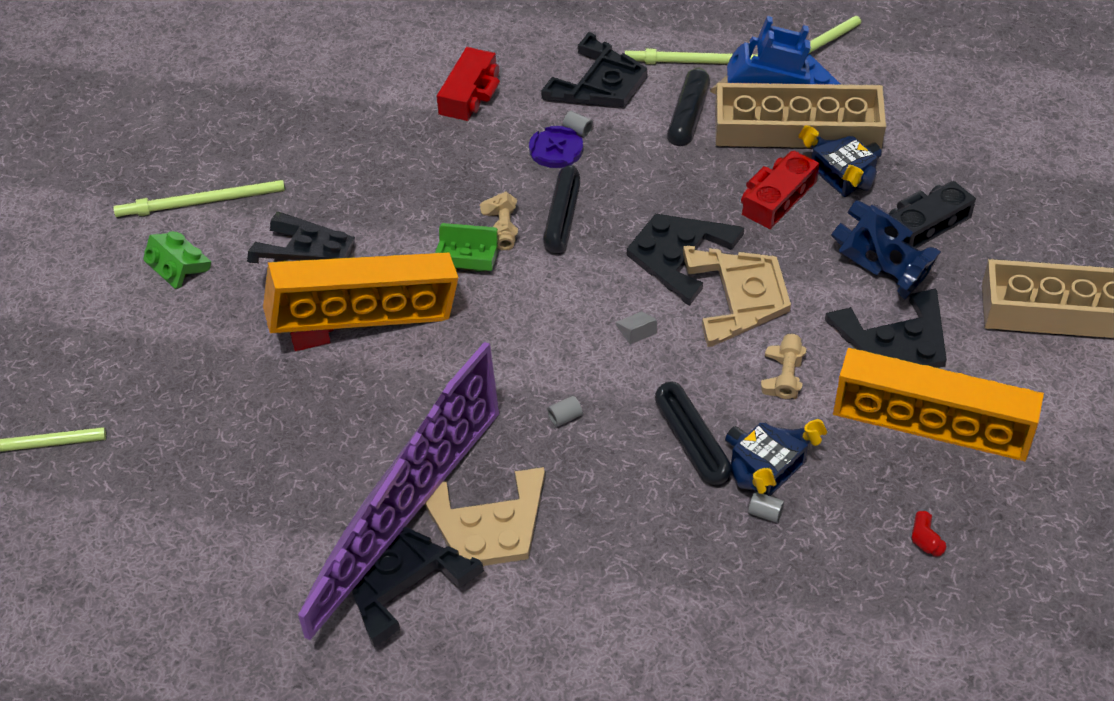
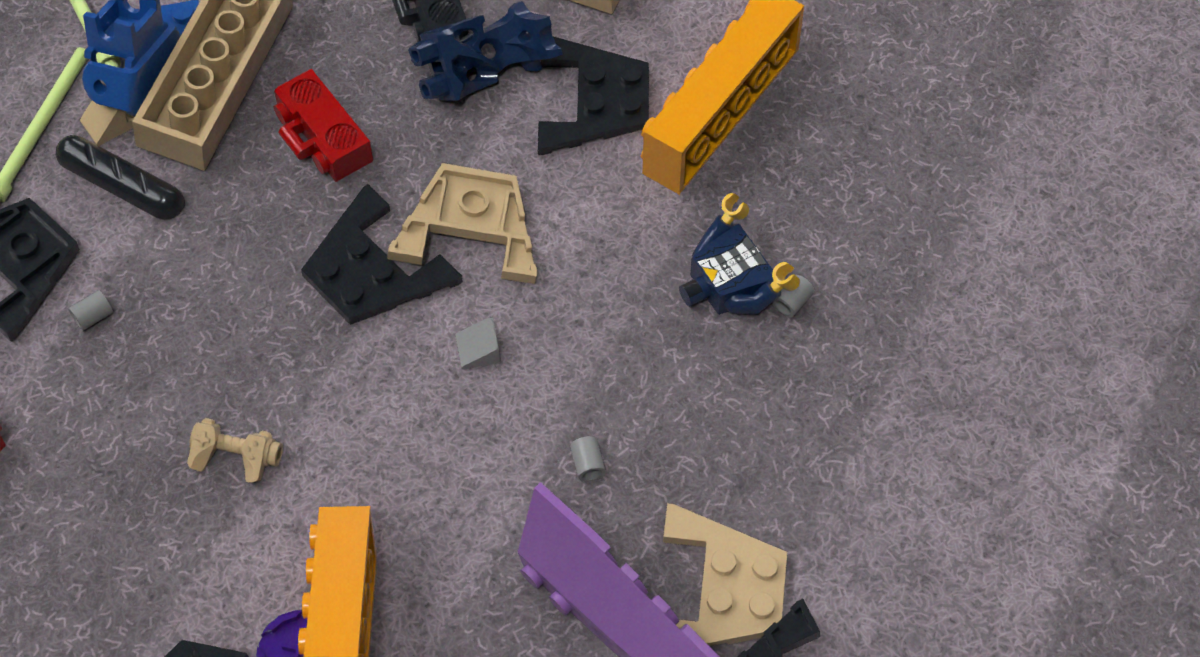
camera: 75 degrees left, 10 degrees up
(469, 245) = (273, 501): bright green bracket -> none
(556, 147) = (117, 349): dark purple tile -> none
(562, 210) = (245, 372): black piece -> none
(693, 433) = (668, 333): black piece -> none
(790, 355) = (585, 203): tan piece -> none
(843, 162) = (315, 43): torso -> none
(925, 537) = (870, 168): red arm -> none

